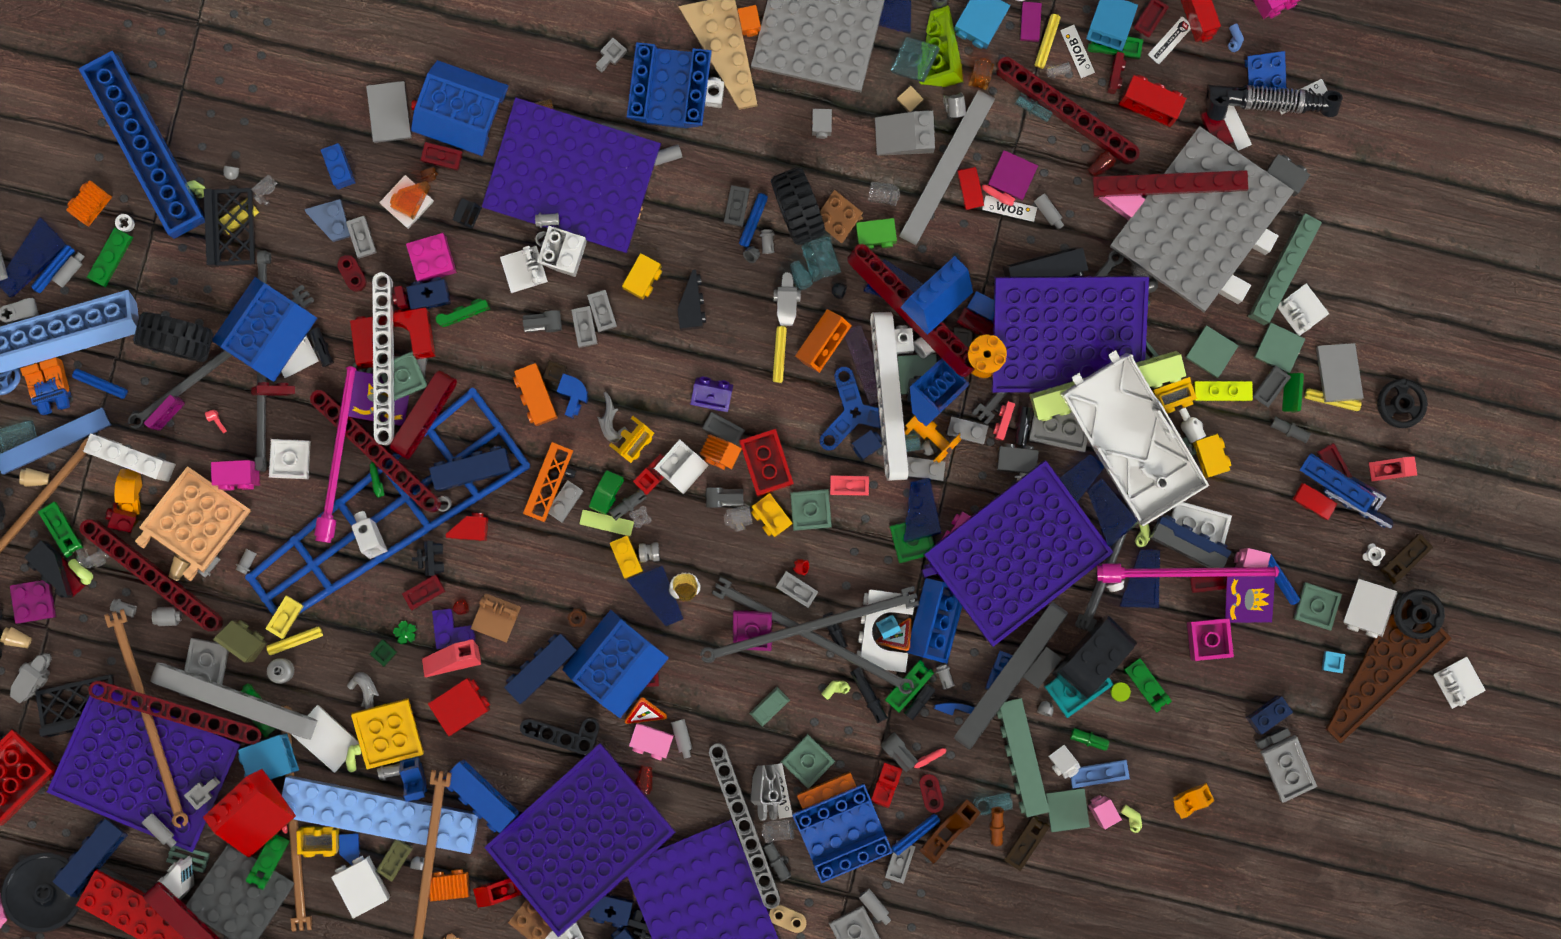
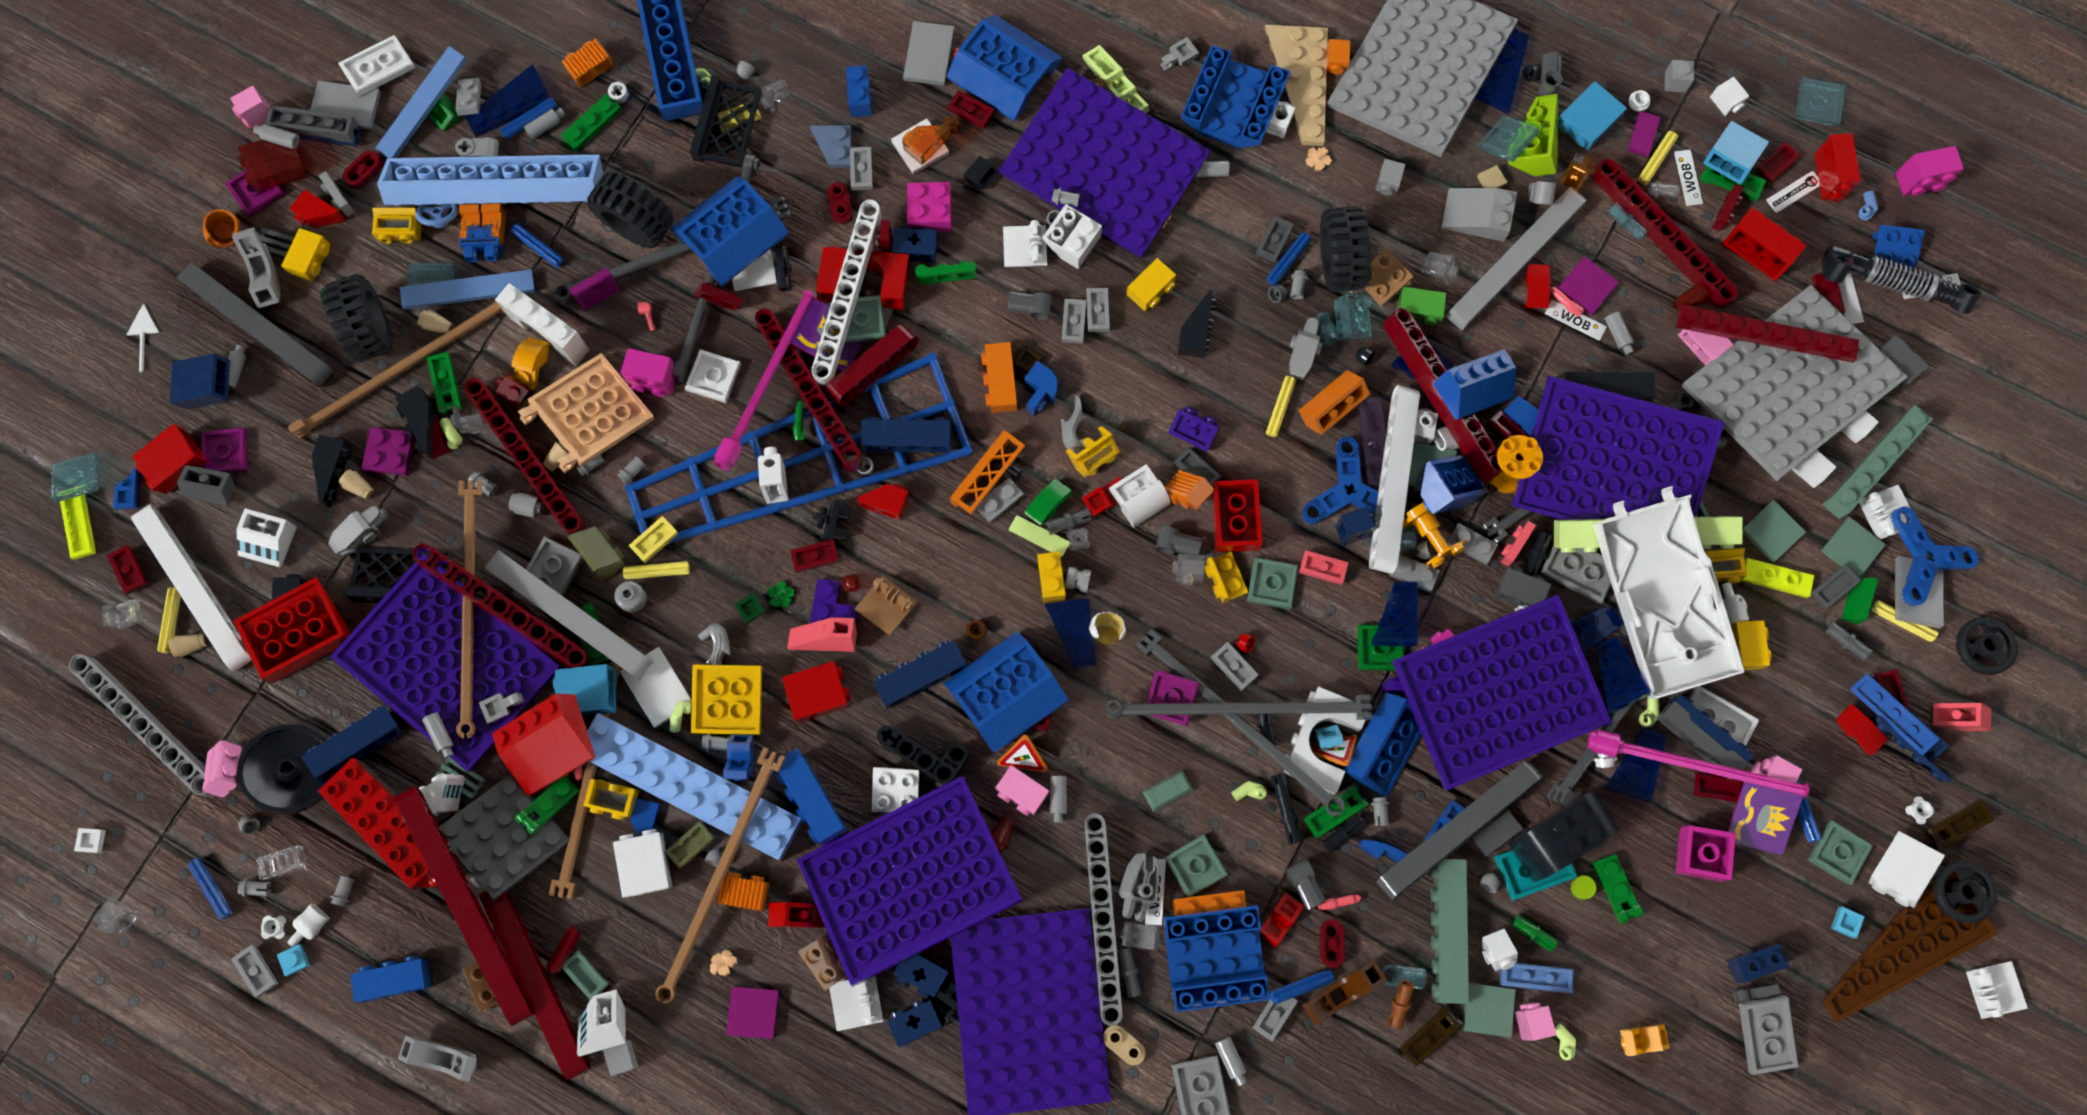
camera: 25 degrees right, 10 degrees down
(546, 767) = (893, 788): none -> white hinge
(559, 94) = (1115, 81): none -> yellowish green slope
(755, 119) = (1318, 158): none -> light nougat plant
(1331, 333) = (1920, 545): none -> blue piece

